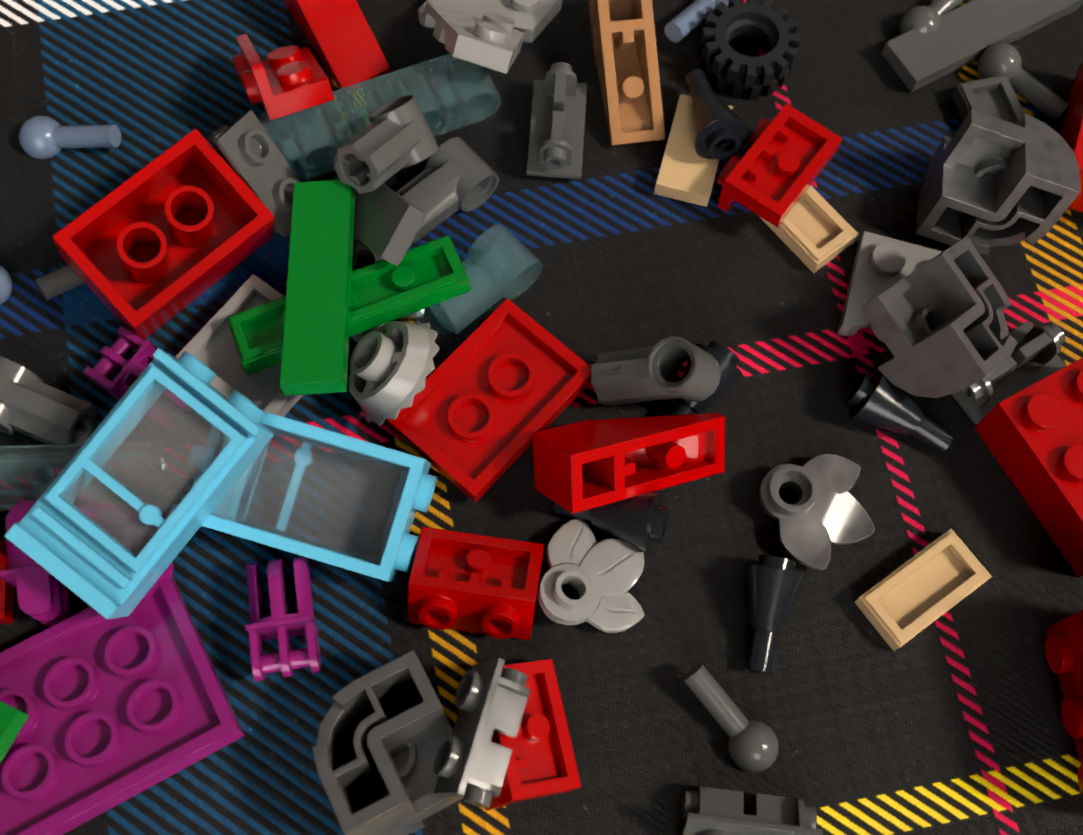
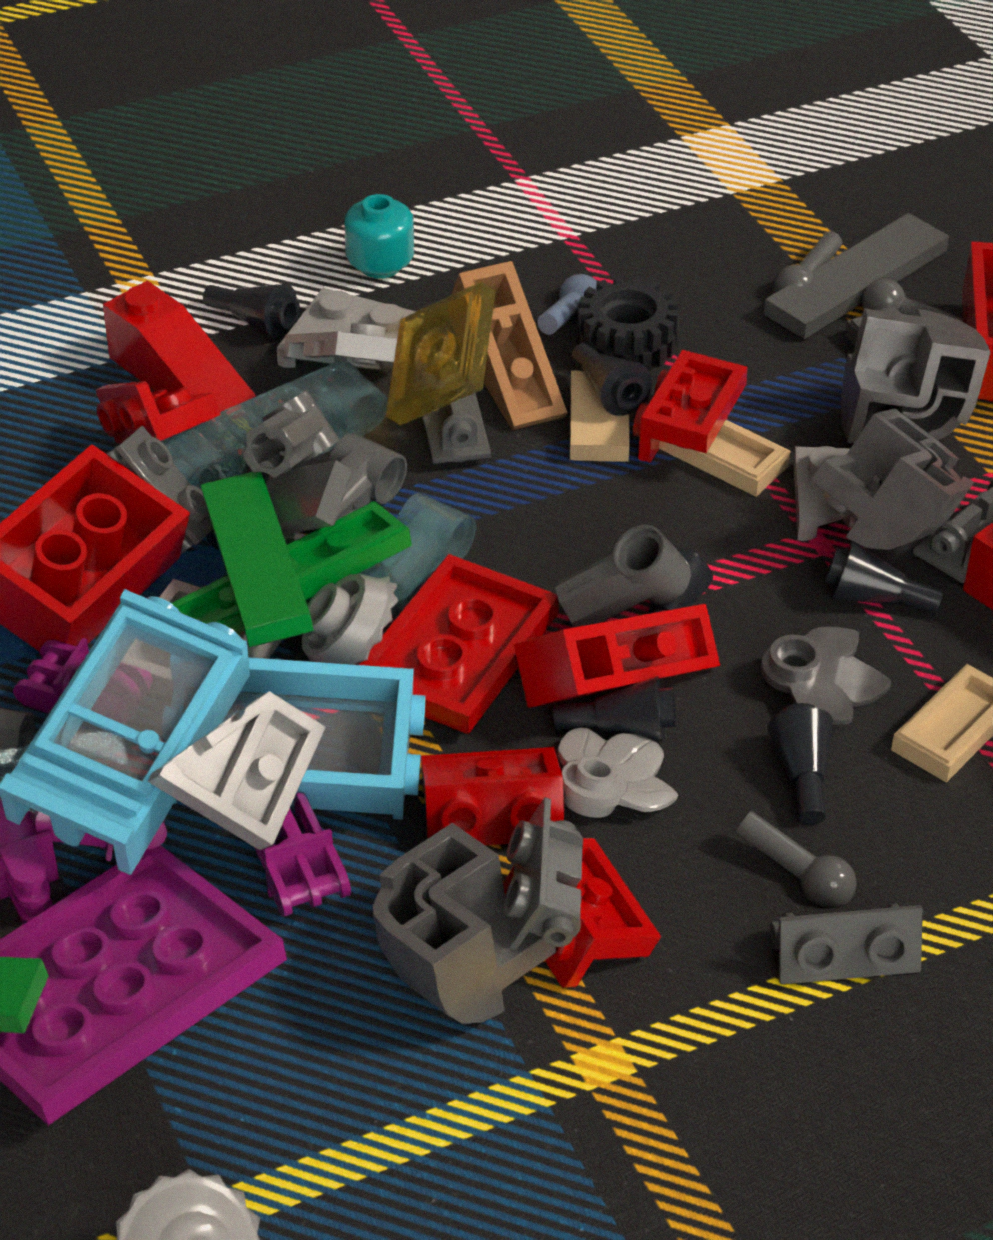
camera: 10 degrees left, 25 degrees down
(238, 550) = (245, 769): none -> wing
(556, 67) = (441, 353): none -> clear yellow tile

